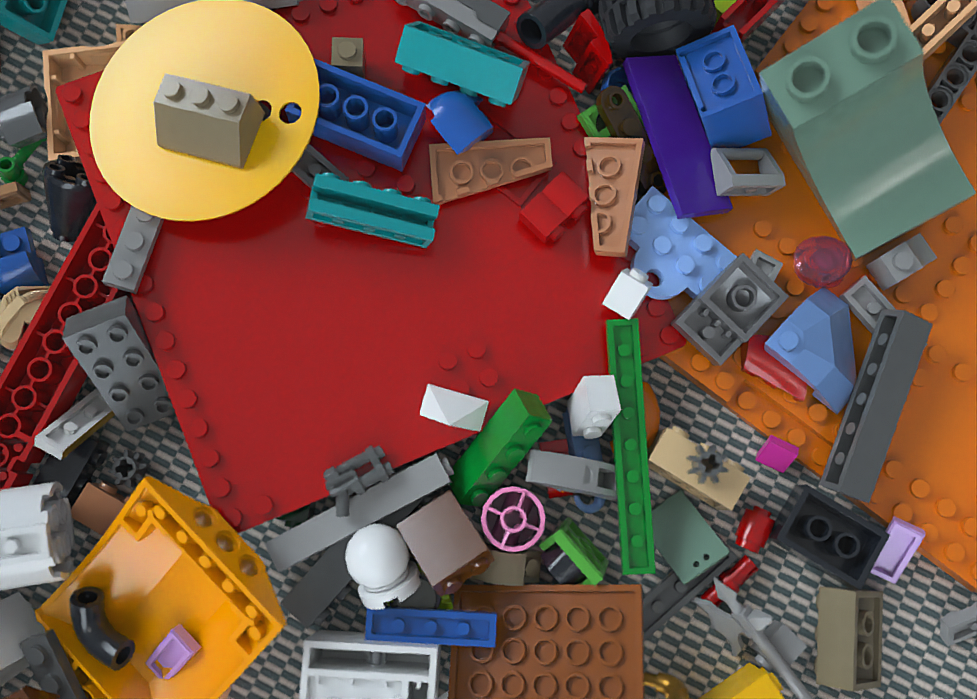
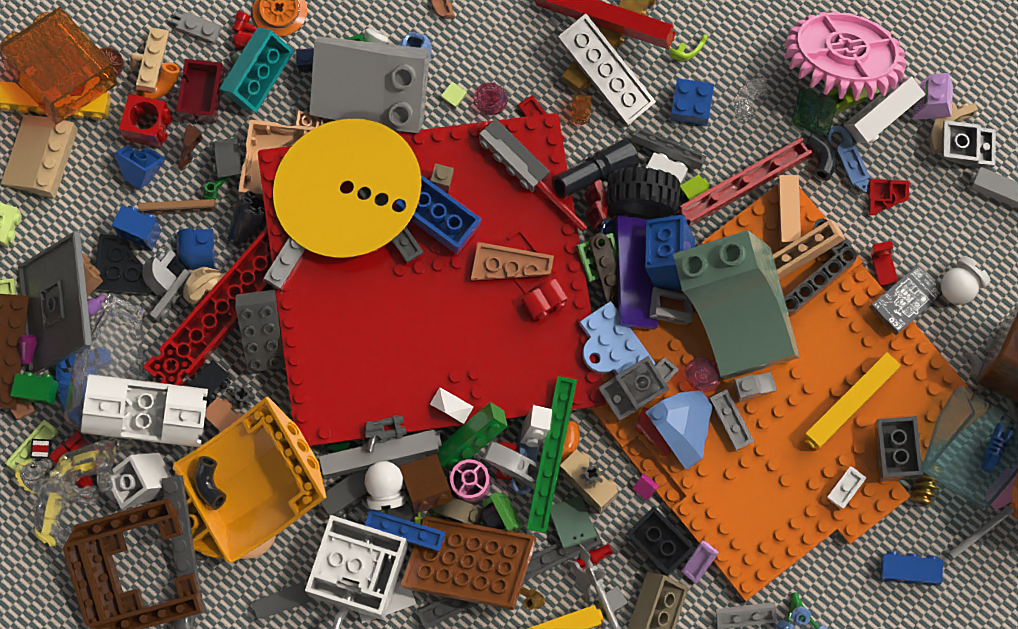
camera: 15 degrees right, 5 degrees down
(75, 426) = (222, 359): white plate -> none
(173, 652) = (247, 509): lavender tile -> none
(206, 120) = (348, 199): dark tan slope -> none
(372, 210) = (433, 275): teal brick -> none
(459, 119) = (500, 232): blue brick -> none
(461, 62) = (511, 197): teal brick -> none
(613, 187) = (585, 293): nougat wing -> none
(628, 292) = (575, 362): white brick -> none
(754, 529) = (618, 528): red brick -> none
(876, 404) = (707, 467): dark grey brick -> none

